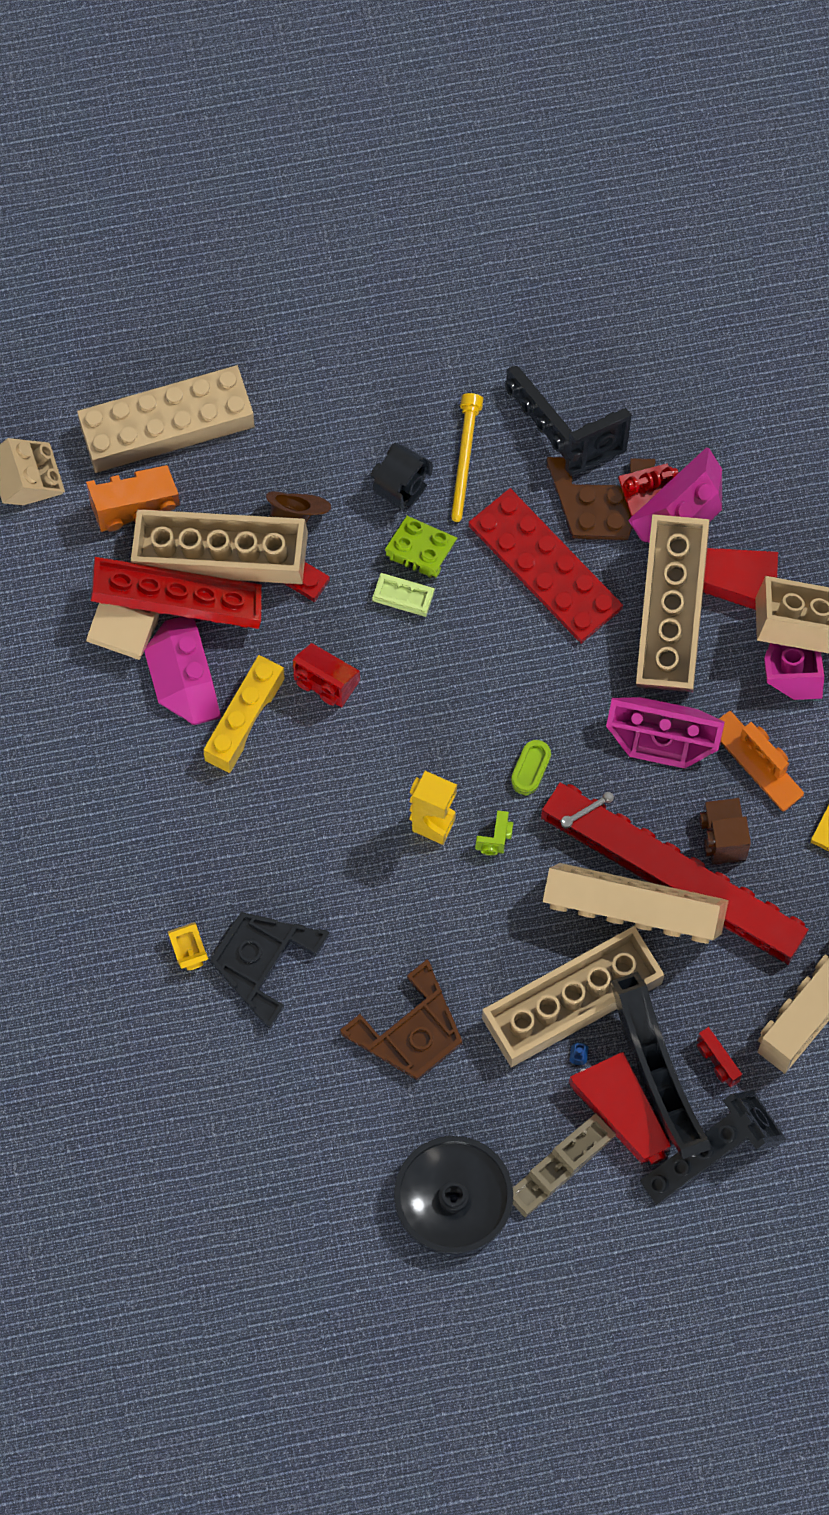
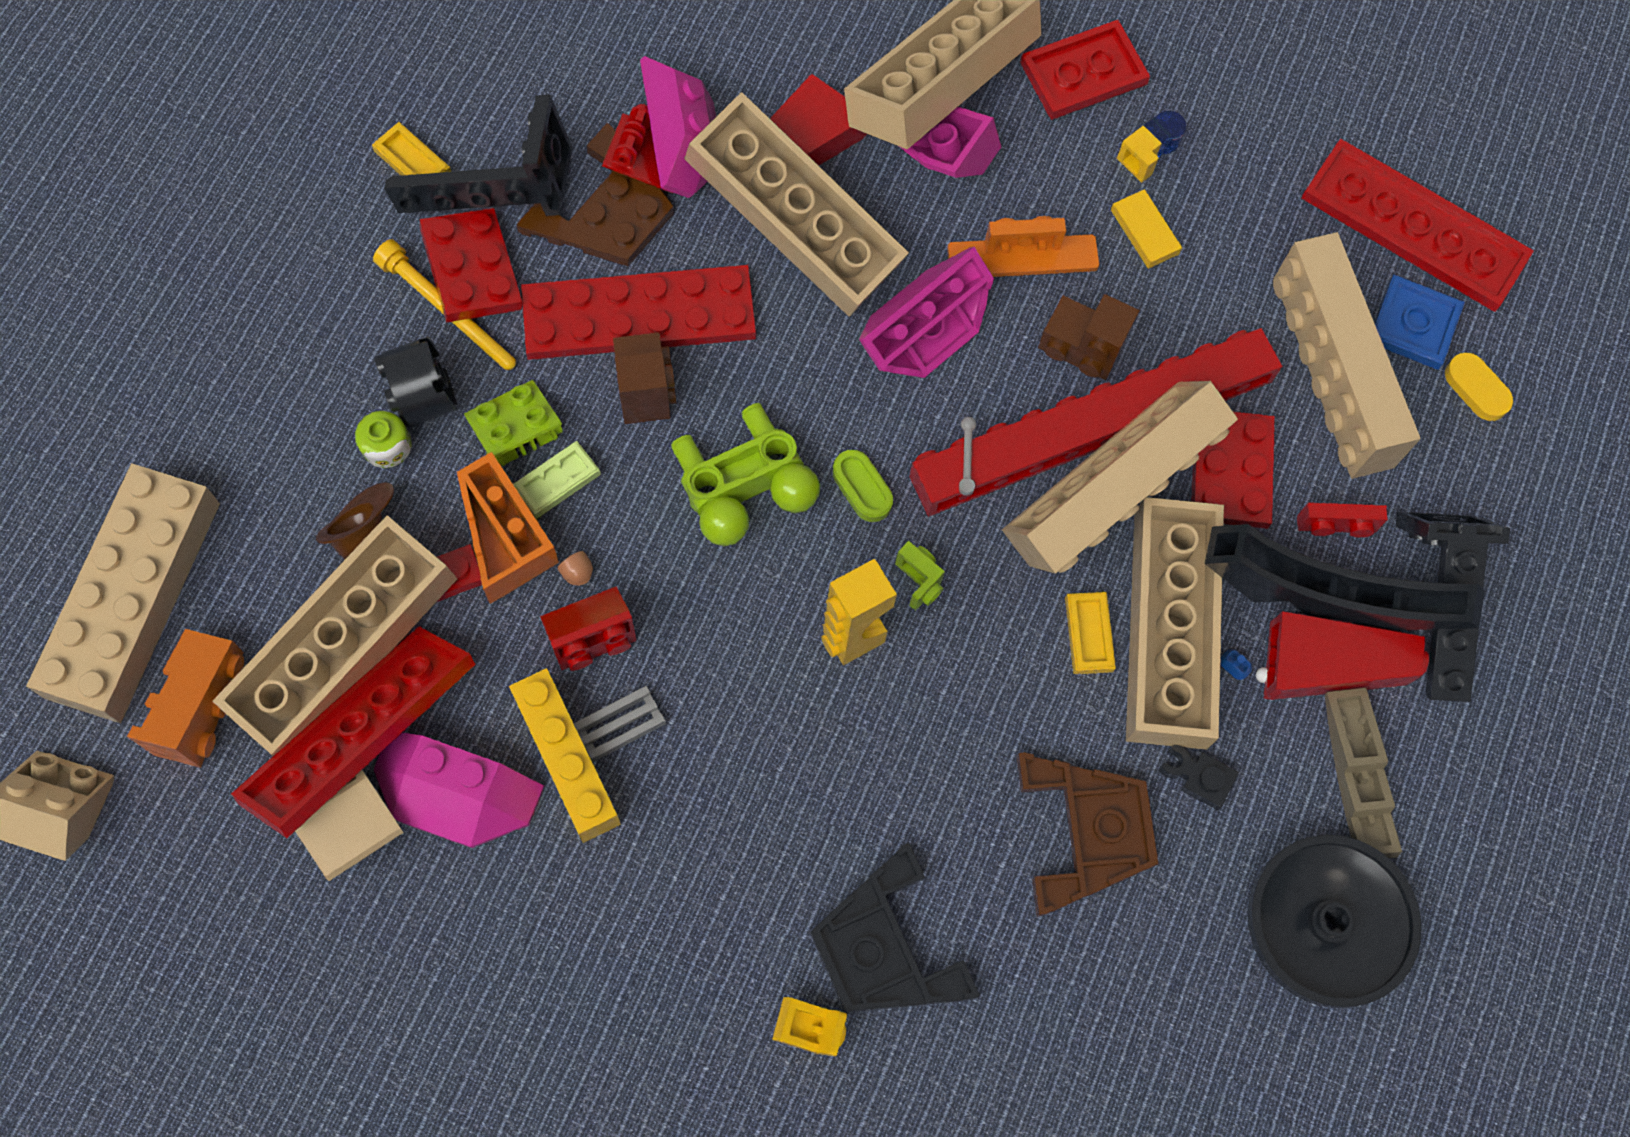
camera: 60 degrees left, 0 degrees up
(264, 721) = (613, 709): none -> light grey tile
(348, 587) = (503, 529): none -> orange wedge
(354, 484) = (383, 439): none -> lime head
(357, 644) = (576, 569): none -> nougat hinge
(482, 694) = (742, 475): none -> lime piece
(491, 1077) = (1205, 778): none -> black plate
(500, 450) = (470, 265): none -> red plate
(500, 595) = (644, 378): none -> reddish brown brick
(535, 956) = (1090, 633): none -> yellow tile
(546, 366) = (407, 153): none -> yellow tile
(708, 975) = (1239, 472): none -> red plate

